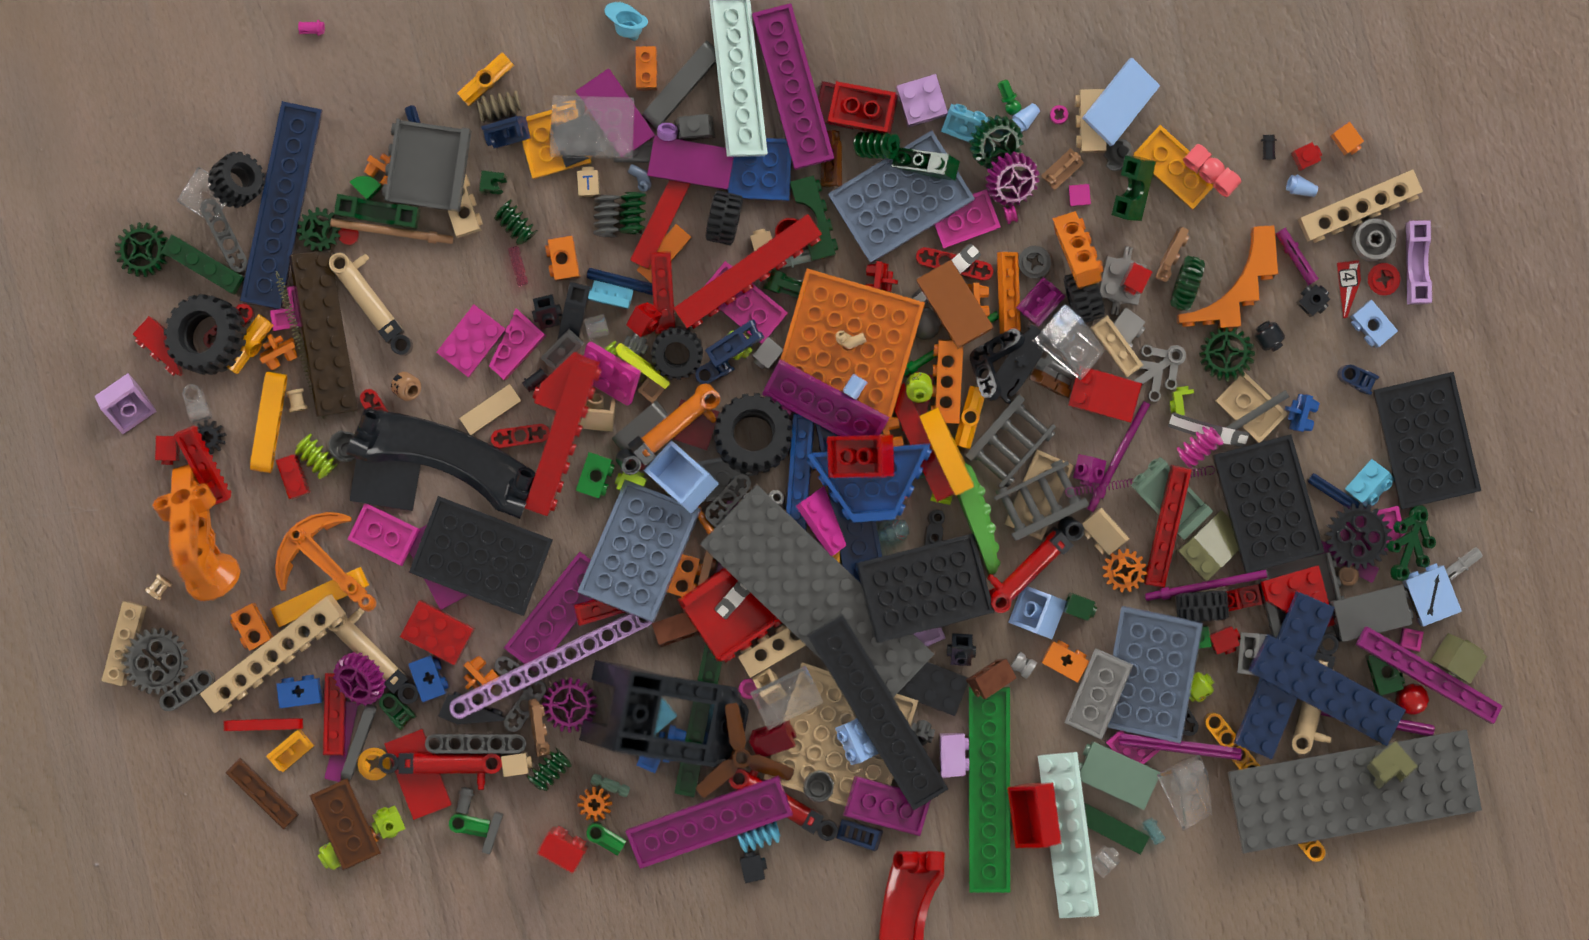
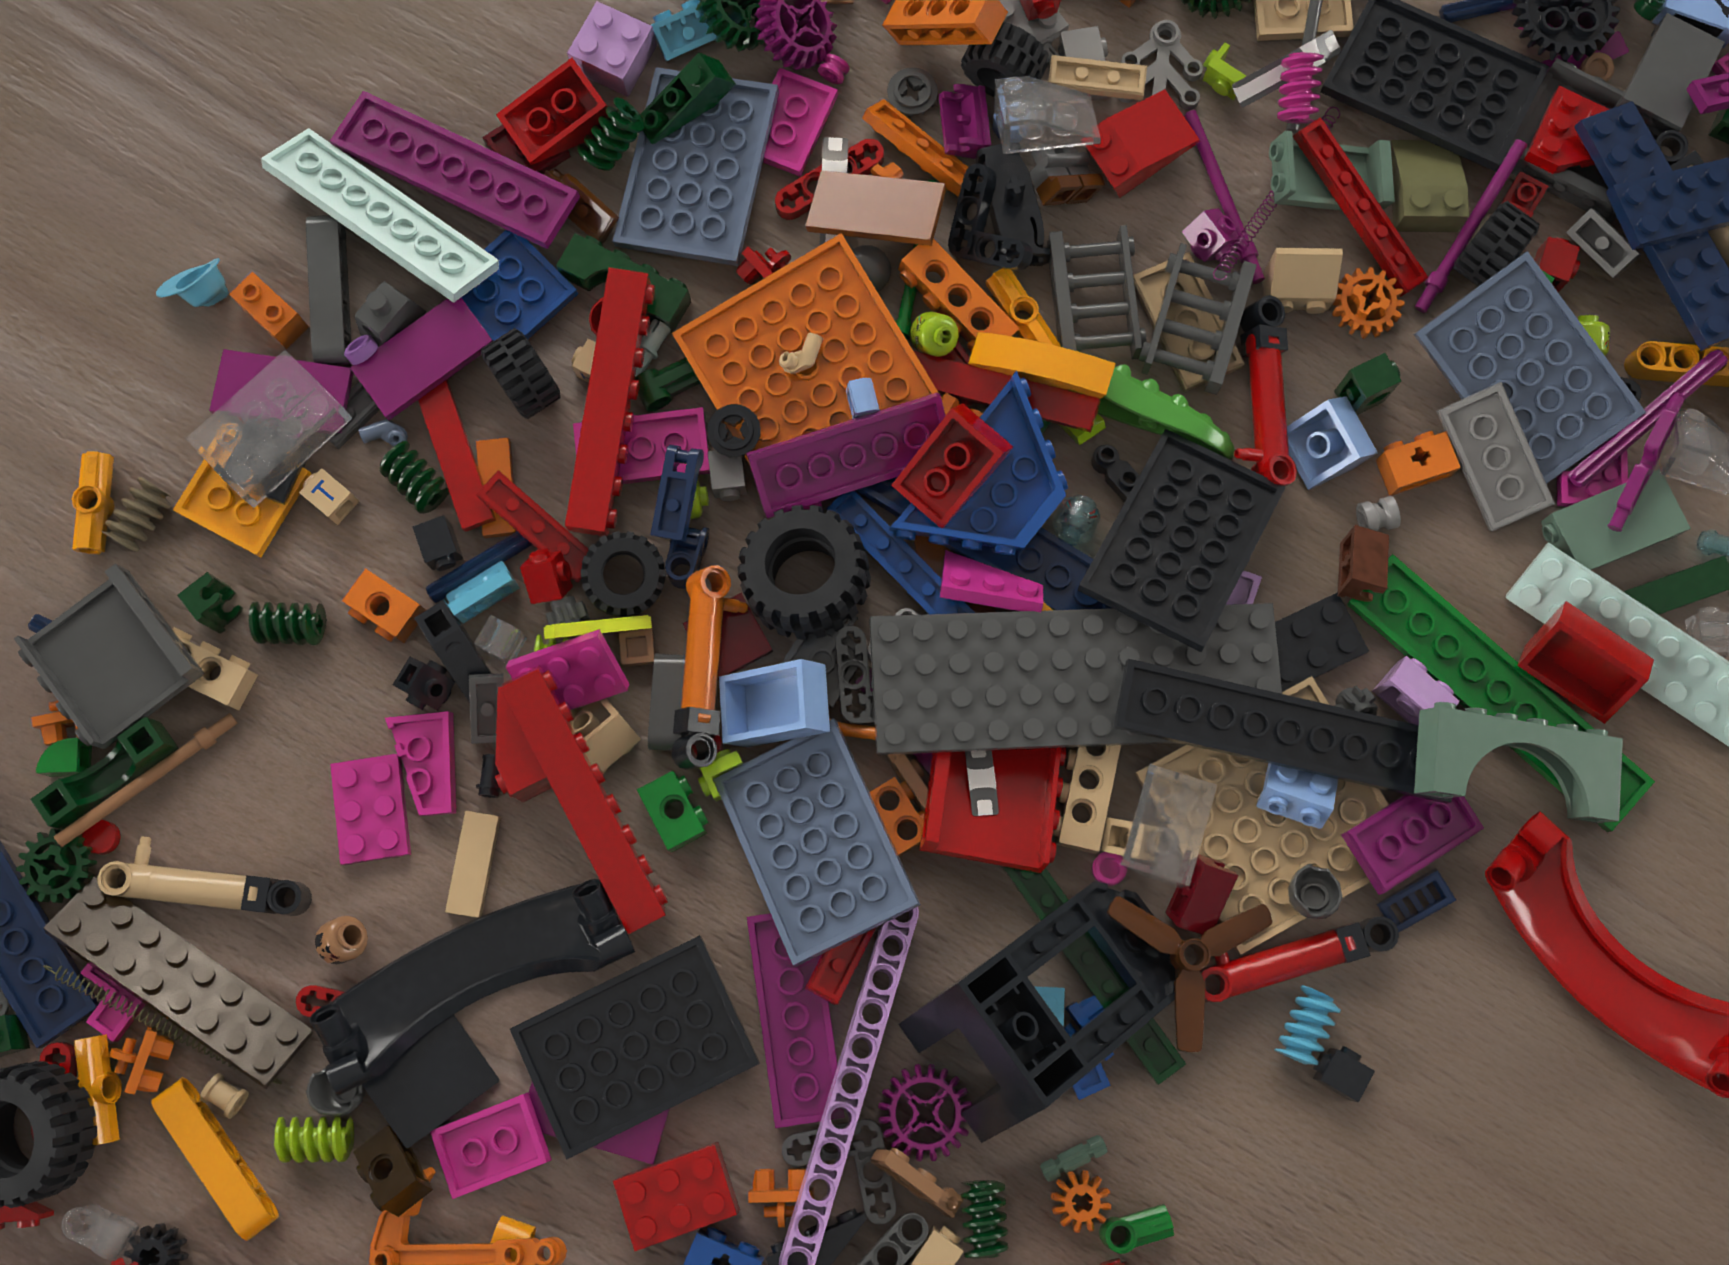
camera: 45 degrees left, 10 degrees down
(292, 476) = (308, 1193): red brick -> none
(334, 514) = (405, 1183): none -> dark brown brick
(504, 432) = (531, 883): red beam -> none
(506, 132) = (172, 532): dark blue hinge -> none
(518, 266) = (340, 669): clear pink axle -> none
(606, 216) = (383, 511): dark grey piece -> none
(613, 254) = (438, 543): none -> black brick
(674, 629) = (952, 890): copper hinge -> none
(709, 822) = (1237, 1075): magenta plate -> none
(780, 334) = (733, 415): none -> black gear
(937, 788) = (1581, 761): none -> sand green arch
(961, 649) = (1295, 568): black brick -> none
(1148, 766) = (1642, 472): none -> magenta piece

